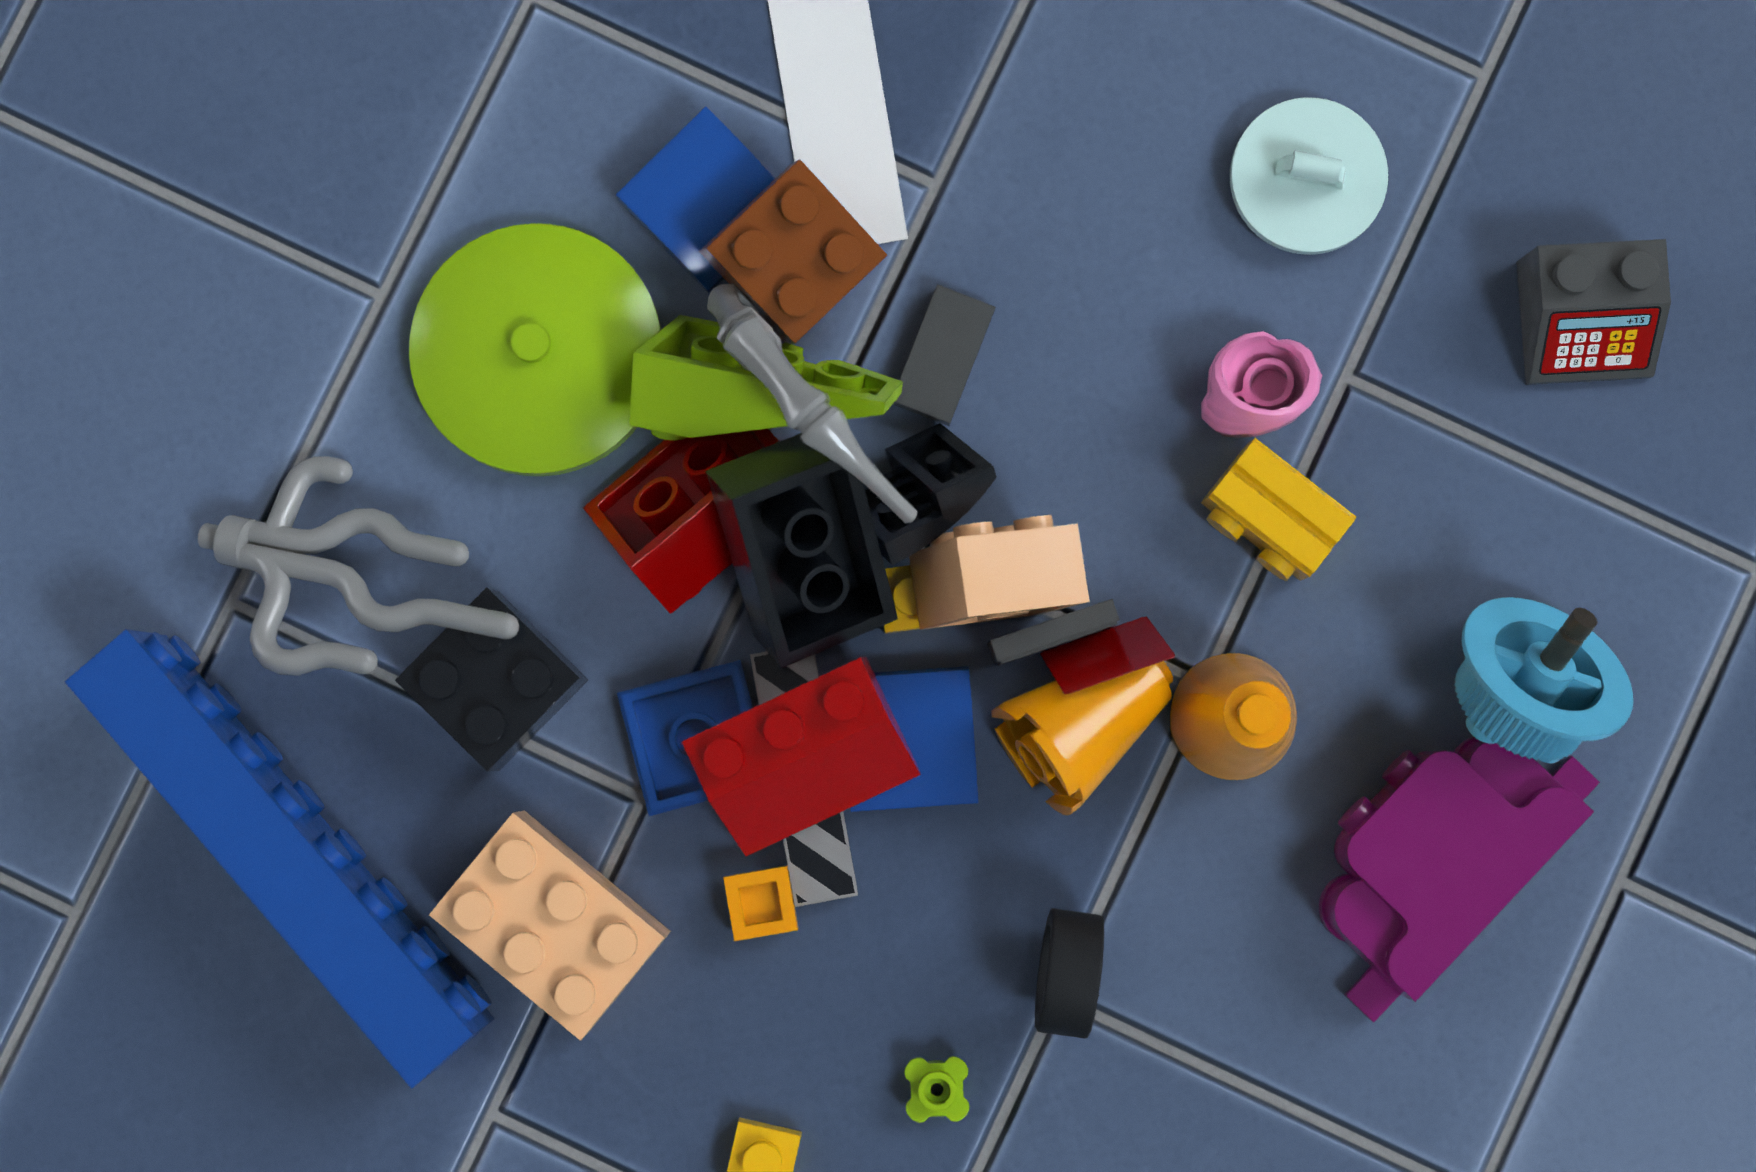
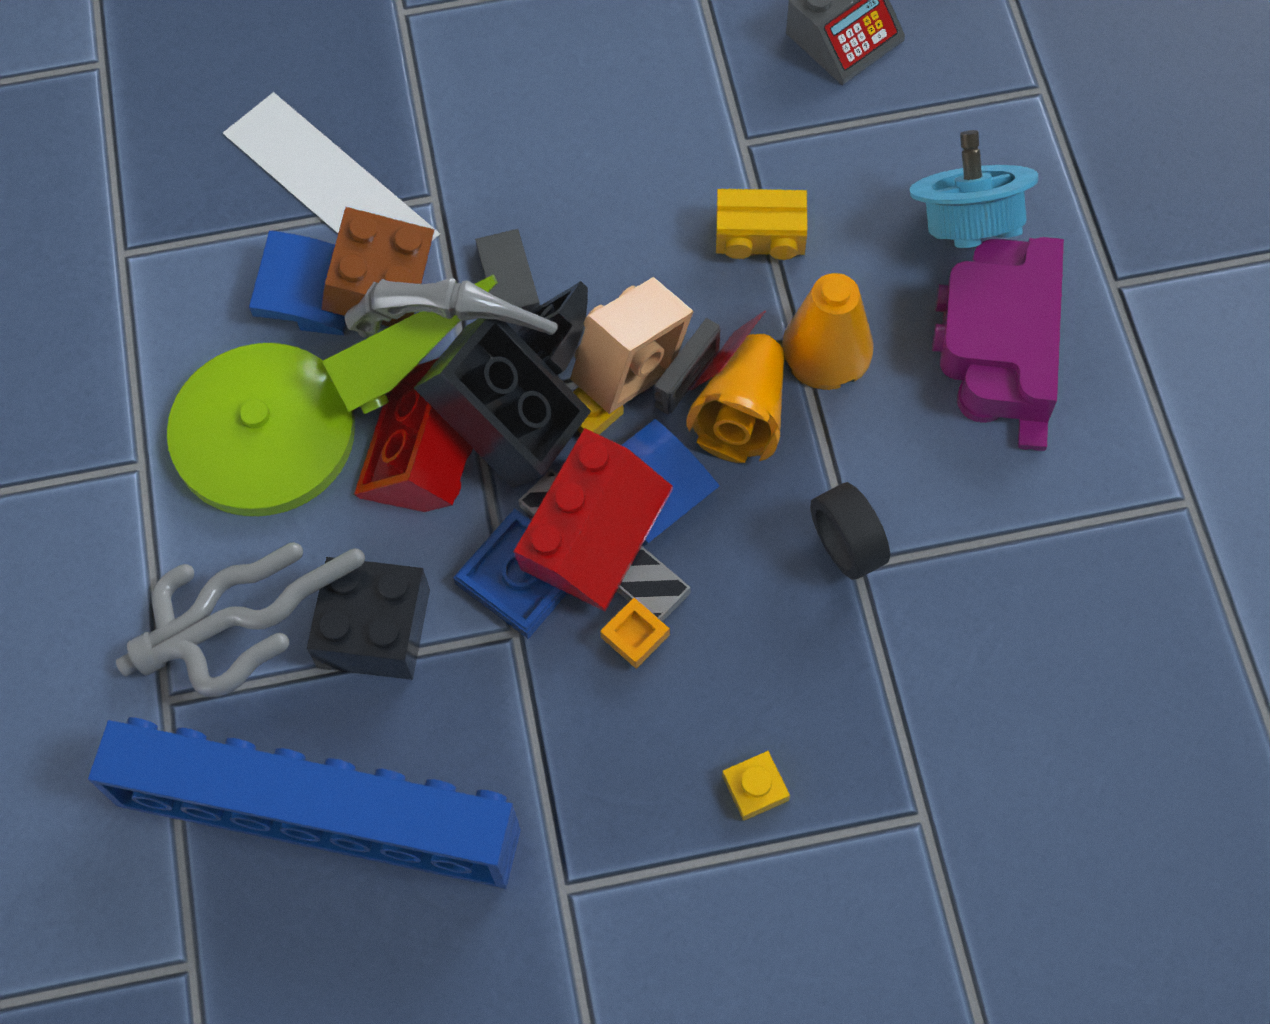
camera: 30 degrees left, 20 degrees down
(549, 923) = (512, 732): light nougat brick -> none
(925, 1074) = (828, 678): lime plate -> none
(1259, 385) = (698, 169): bright pink hair -> none
(1308, 176) = (639, 60): light aqua shield -> none

